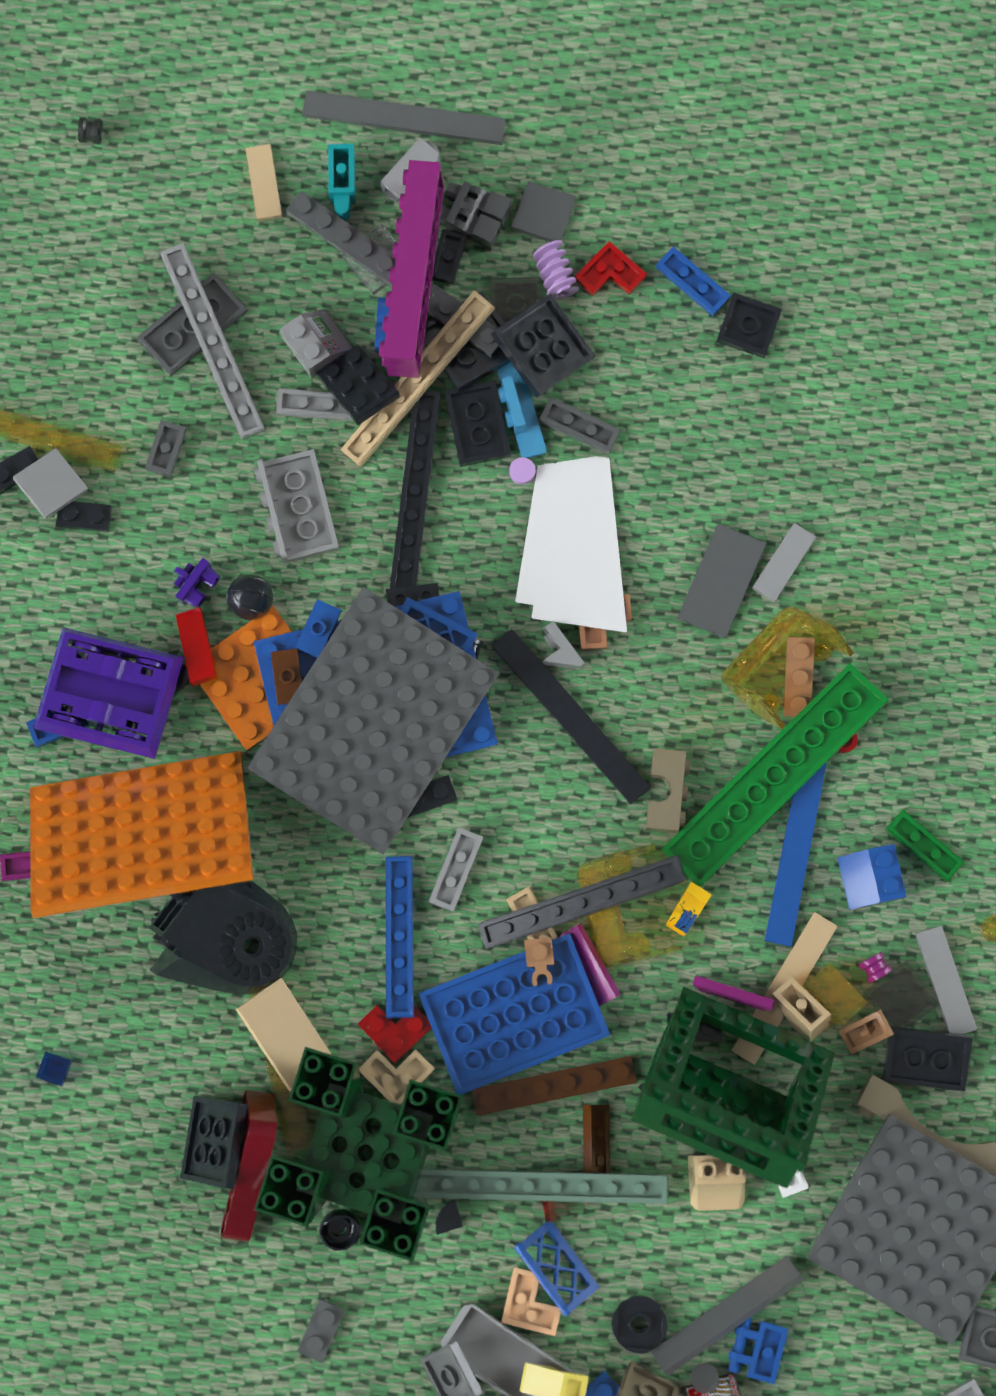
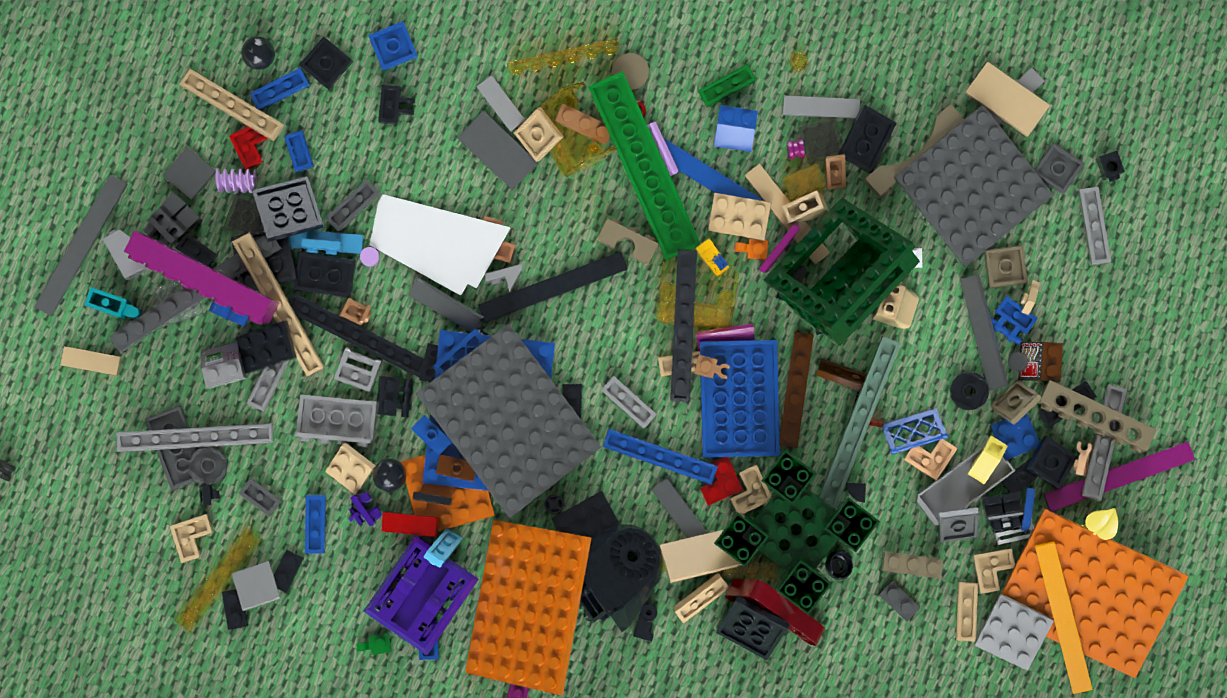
camera: 65 degrees left, 5 degrees up
(30, 663) = (378, 644): none -> green plate
(83, 376) = (186, 534): none -> tan plate
(145, 383) = (206, 495): none -> black tile
(155, 529) = (315, 524): none -> blue plate
(177, 995) = (644, 622): none -> black leg
(178, 697) = (443, 547): none -> medium azure plate
(182, 370) = (207, 466): none -> dark grey tile
(231, 1058) = (700, 598): none -> tan plate
(238, 662) = (432, 498): none -> black tile
(241, 545) = (350, 468): none -> tan plate
(283, 870) = (587, 517): none -> black plate
(286, 817) = (554, 504): none -> black wheel
(338, 987) = (678, 509): none -> dark grey tile
(349, 559) = (388, 396): none -> black plate
(363, 509) = (357, 376): none -> light grey plate
(374, 1330) = (911, 564): none -> dark tan arch
(444, 478) = (355, 312): none -> medium nougat bracket
(495, 588) = (445, 305): none -> dark grey tile
(623, 334) = (299, 151): none -> blue plate
(649, 230) = (231, 105): none -> tan tile
(721, 963) = (755, 249): none -> orange plate
(727, 424) = (390, 104): none -> black hinge
(728, 236) = (258, 53): none -> black piece
(756, 925) = (739, 216): none -> tan plate
(762, 623) = (538, 134): none -> tan tile
(796, 1363) = (1029, 298): none -> tan plate
(804, 399) = (393, 46): none -> blue plate
(806, 791) = (663, 149): none -> lavender axle
(828, 1314) = (1005, 266): none -> dark tan tile
(883, 628) = (571, 55): none -> clear yellow plate
(897, 715) = (634, 69): none -> dark tan tile

